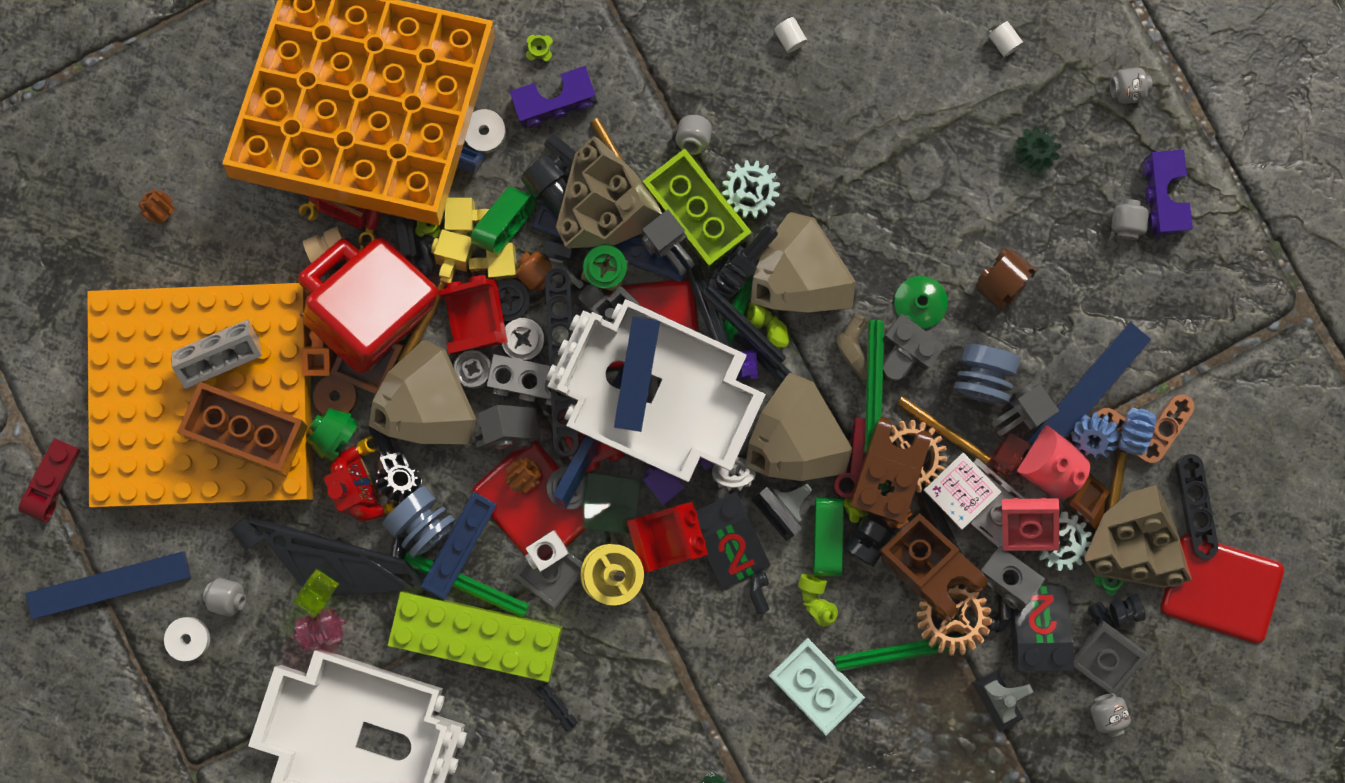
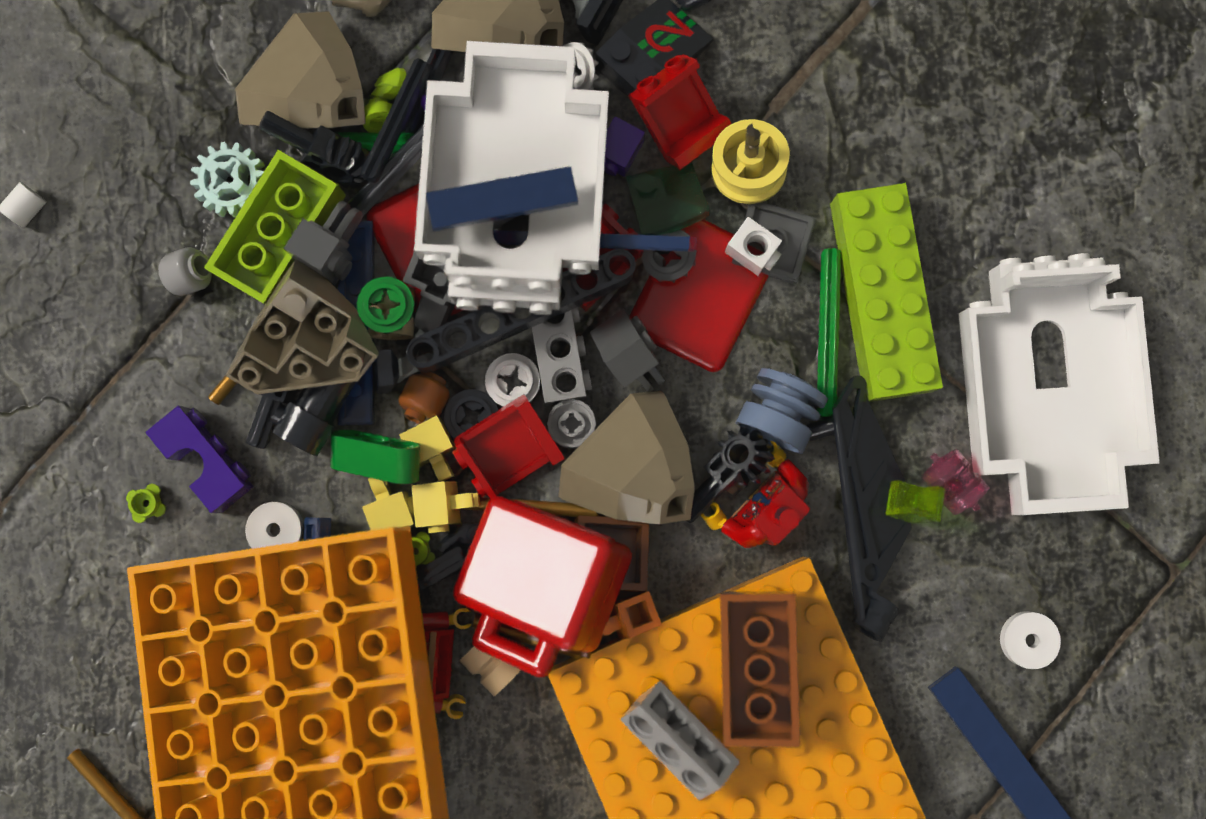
camera: 120 degrees left, 0 degrees up
(224, 597) = (964, 613): light grey head -> none
(329, 385) = (685, 581): dark orange piece -> none
(331, 433) = (717, 561): green cone -> none
(458, 545) = (789, 355): dark blue tile -> none
(522, 475) = (676, 311): dark orange gear -> none
(556, 706) = (926, 171): black axle -> none

